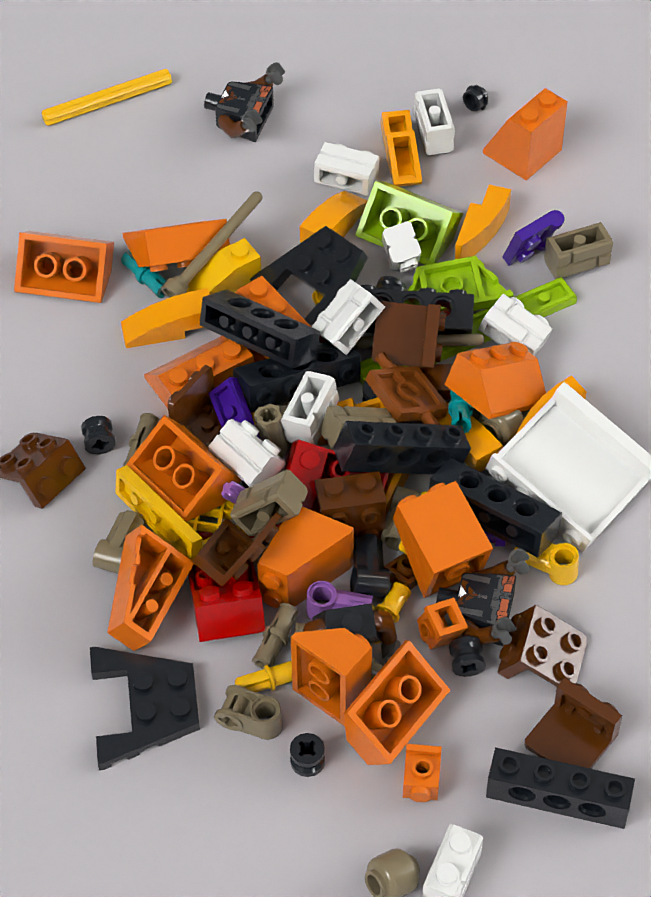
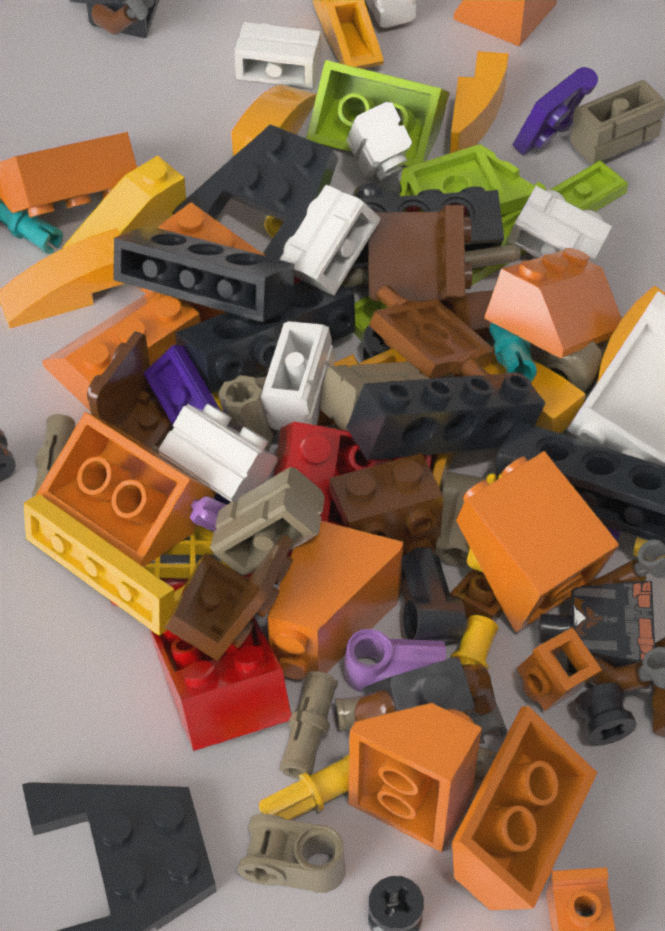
camera: 10 degrees left, 0 degrees up
(109, 551) = (43, 625): dark tan piece -> none
(145, 587) = (96, 678): orange wedge -> none
(179, 284) = (75, 227): dark tan piece -> none

